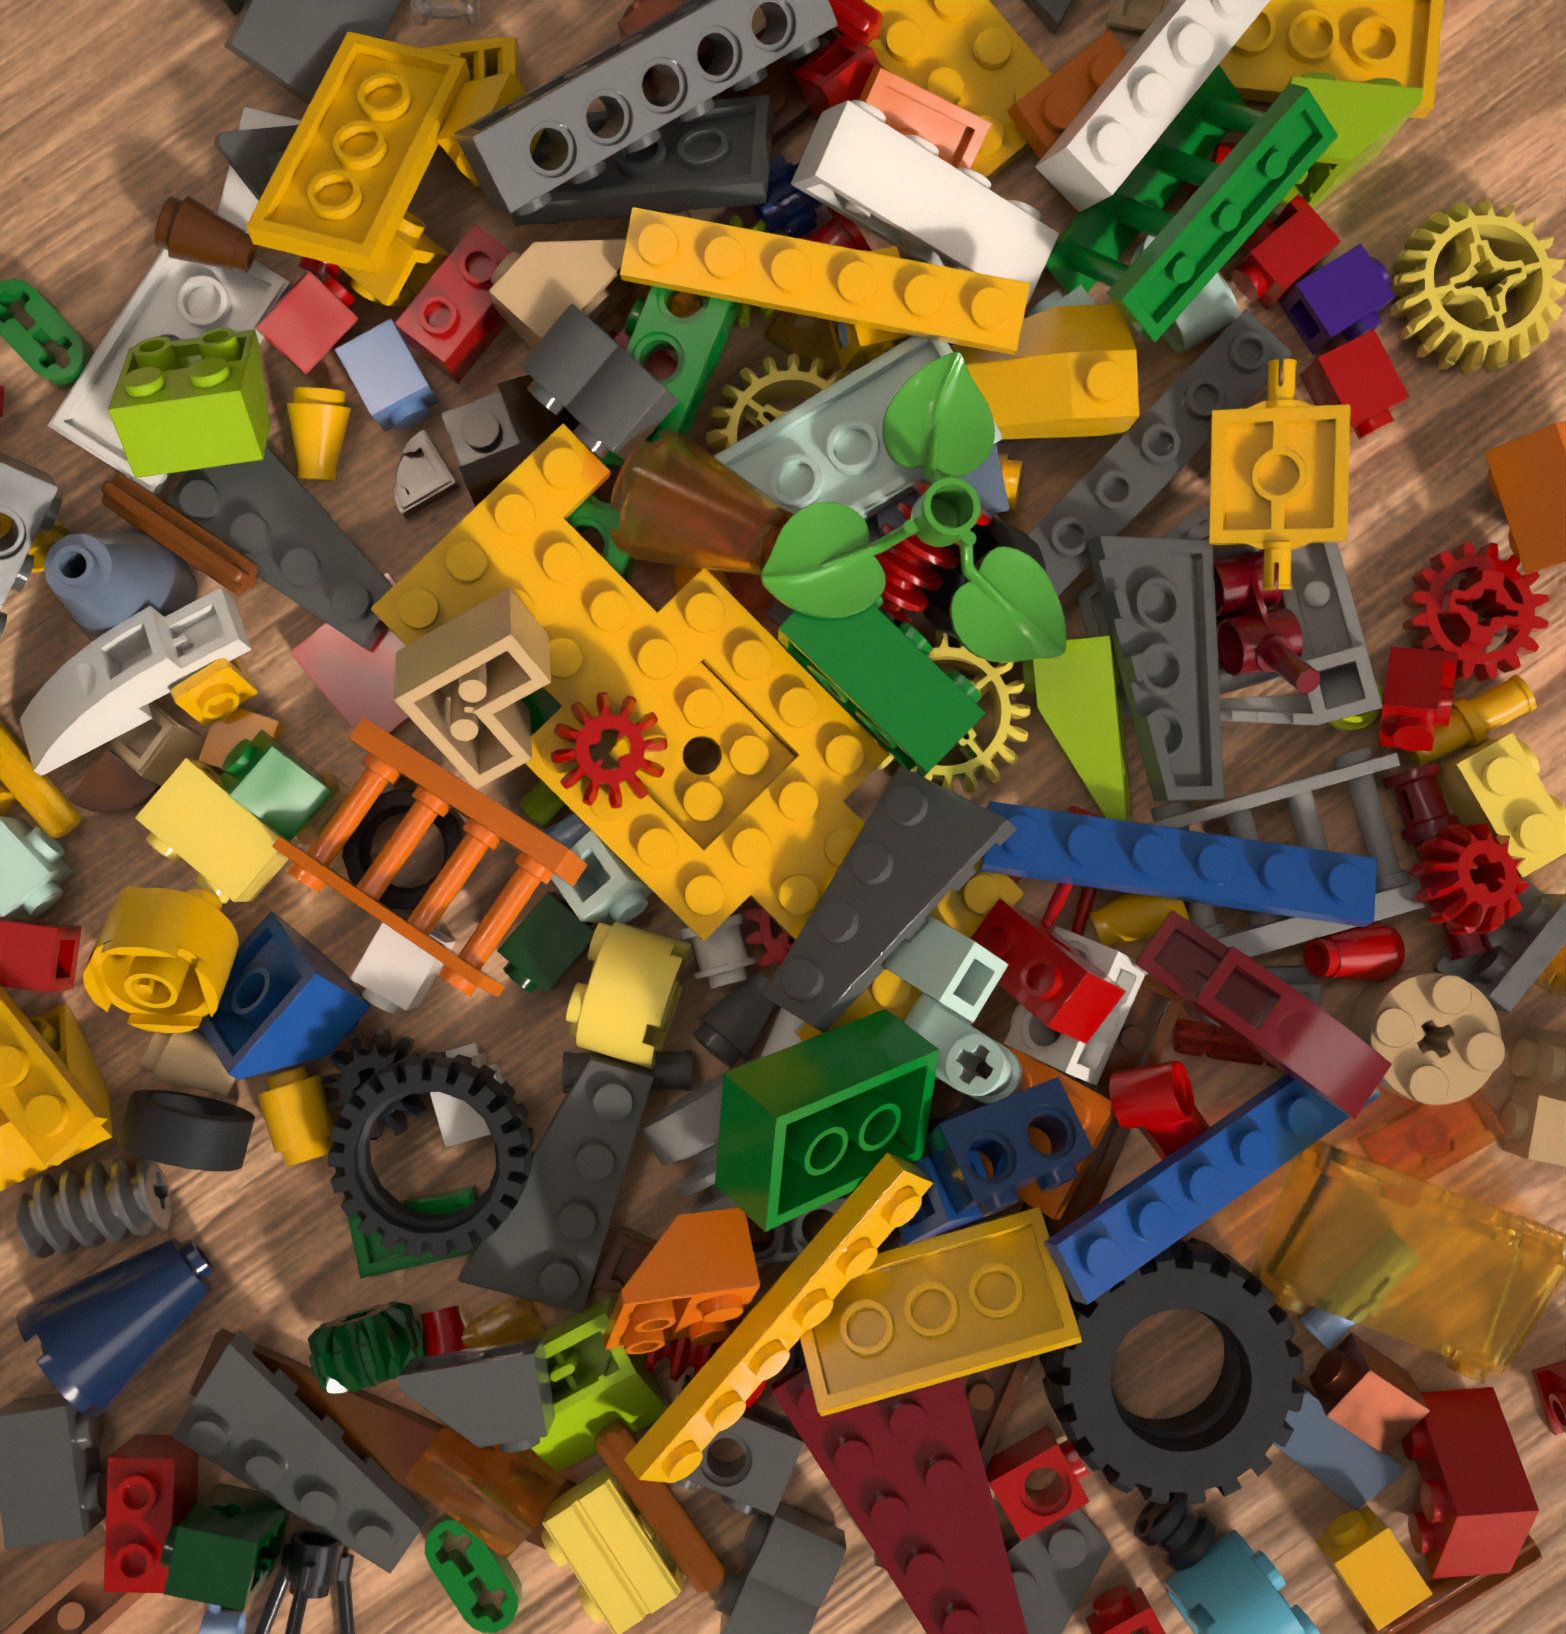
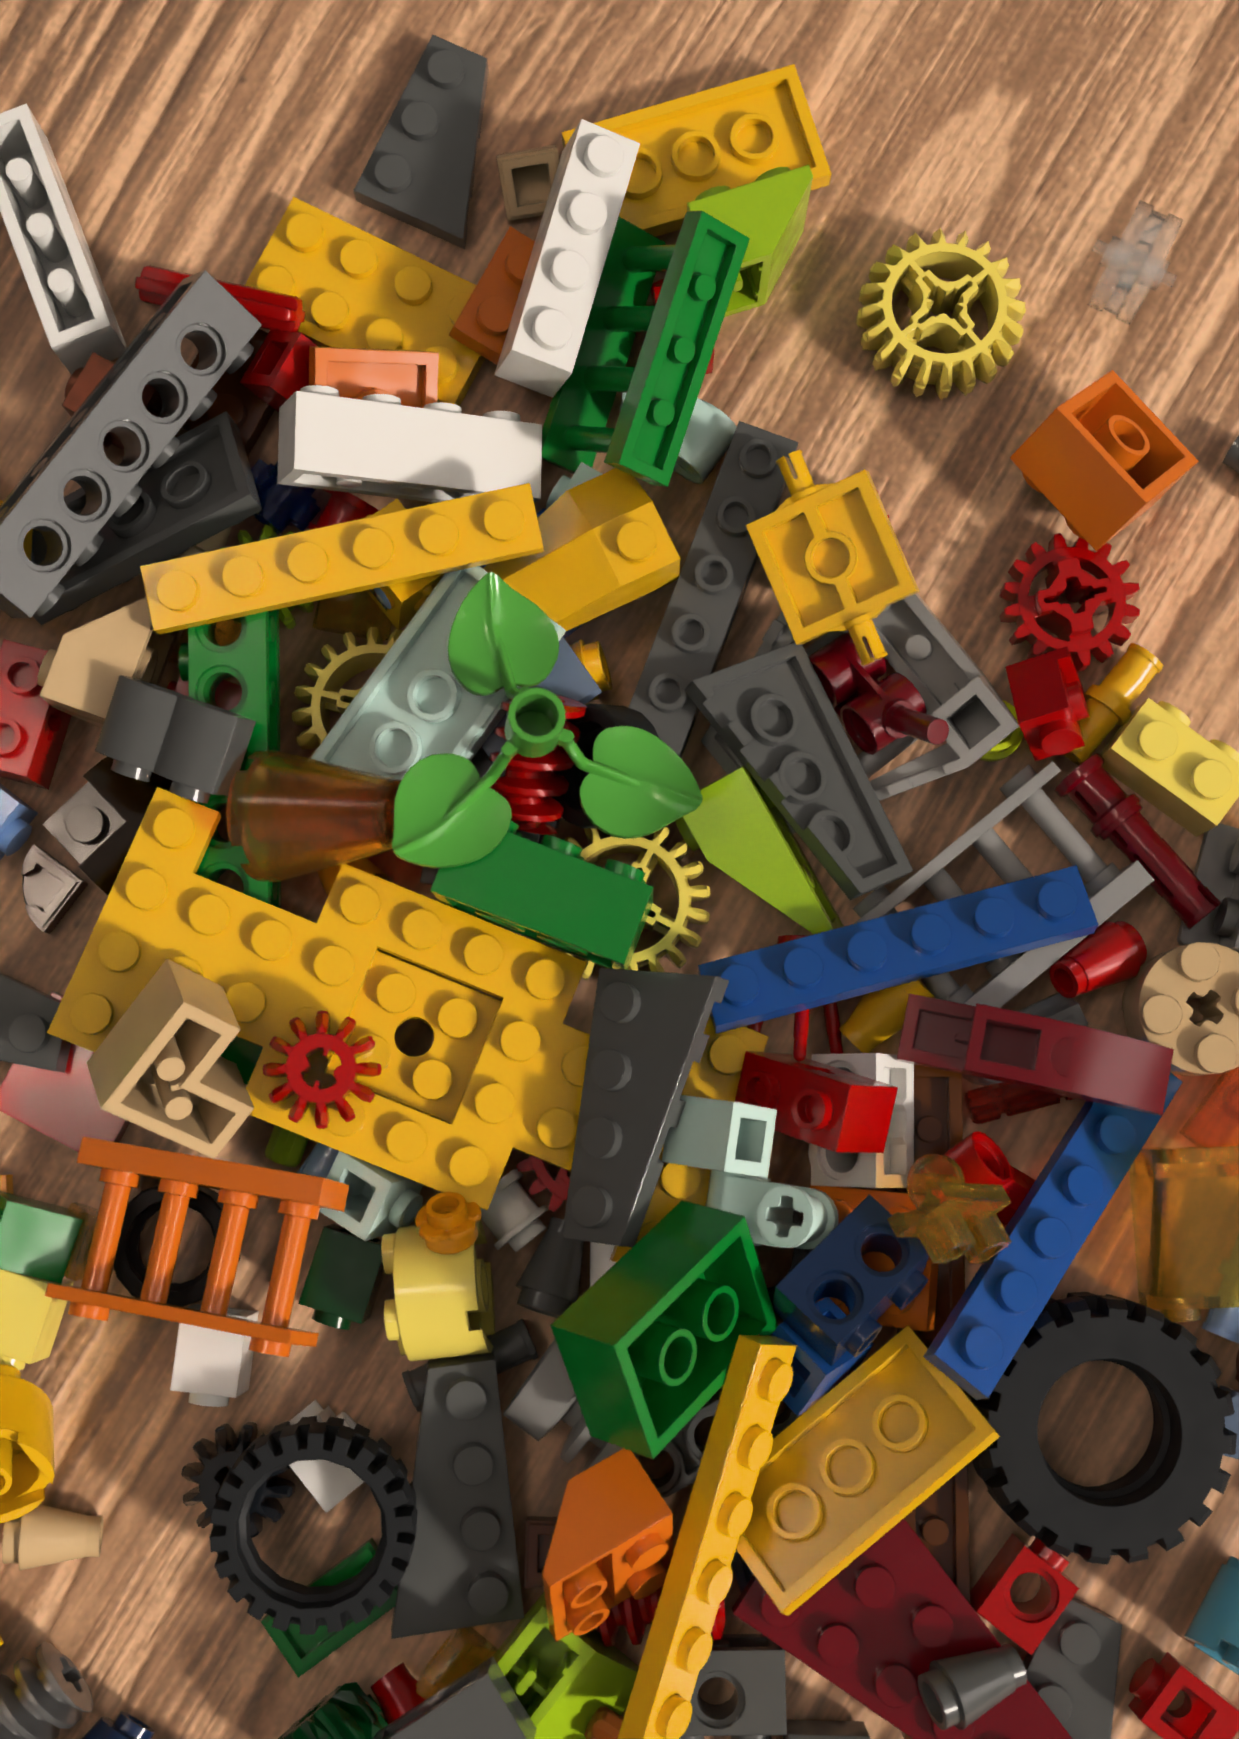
camera: 15 degrees left, 5 degrees down
(186, 1130) = (72, 1605): black tyre -> none
(281, 1003) = (114, 1443): blue slope -> none
(297, 1115) = (173, 1544): yellow brick -> none
(664, 938) = (448, 1223): none -> light orange plate
(957, 1545) = (970, 1684): none -> dark grey cone
(1126, 1127) = (952, 1214): none -> clear yellow hips
(1176, 1531) = (1174, 1581): black wheel -> none
(1284, 253) = (754, 356): red brick -> none
(1339, 300) = (822, 376): dark purple brick -> none
(1358, 376) = (871, 440): red brick -> none
(1468, 879) = (1167, 848): red gear -> none

